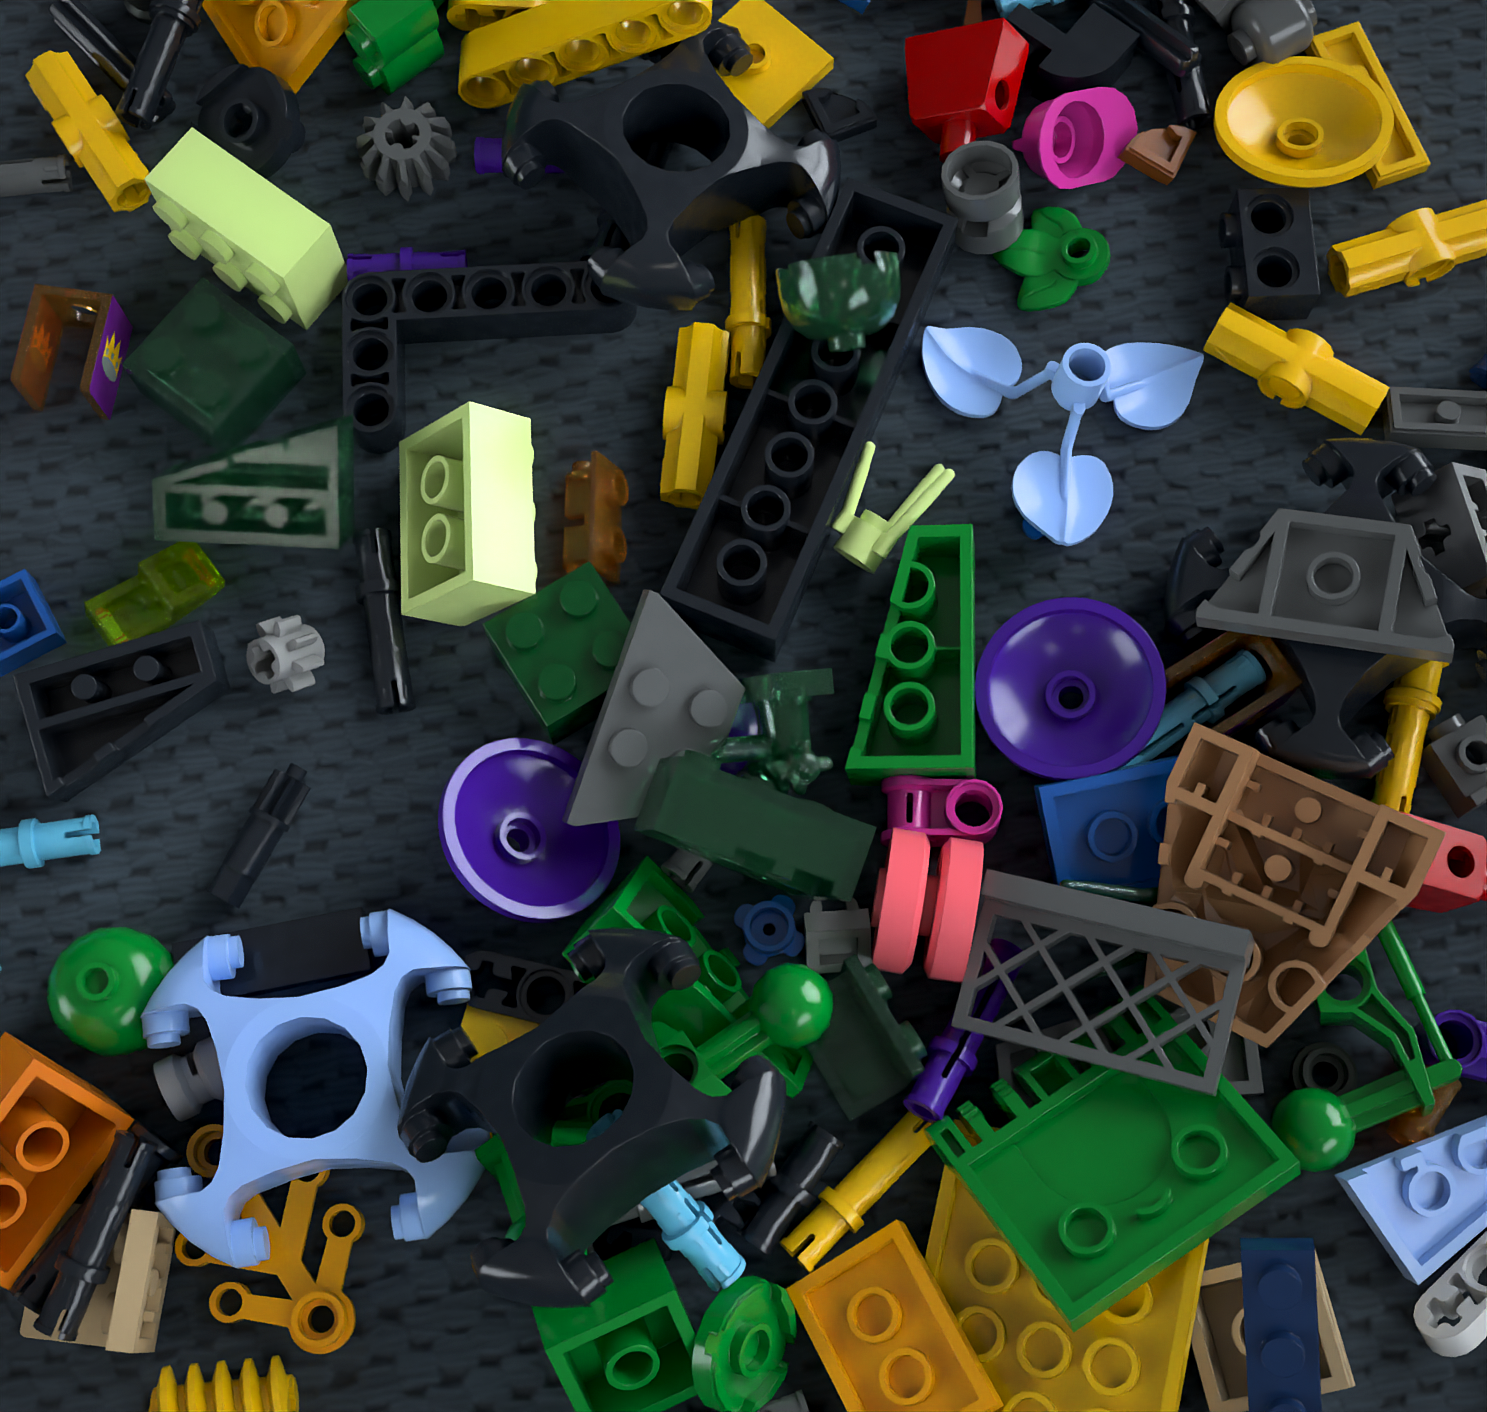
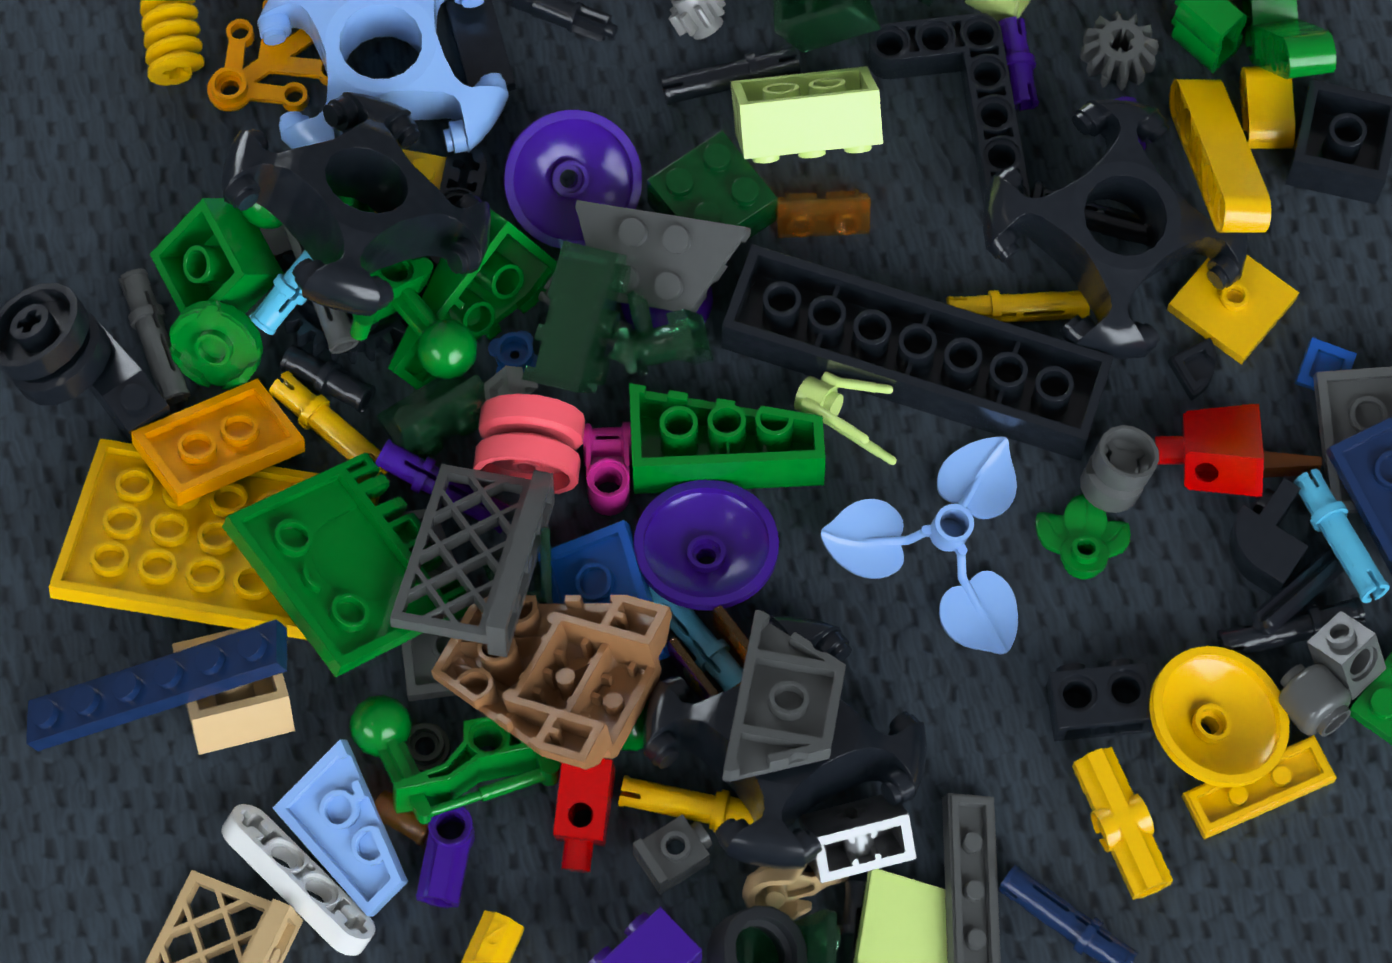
camera: 85 degrees right, 5 degrees down
(694, 414) = (921, 271): yellow piece -> none
(840, 297) = (993, 342): clear green cylinder -> none
(1078, 137) = (1186, 547): dark pink piece -> none
(1158, 151) = (1192, 617): dark orange tile -> none
(1296, 368) = (1000, 722): yellow piece -> none

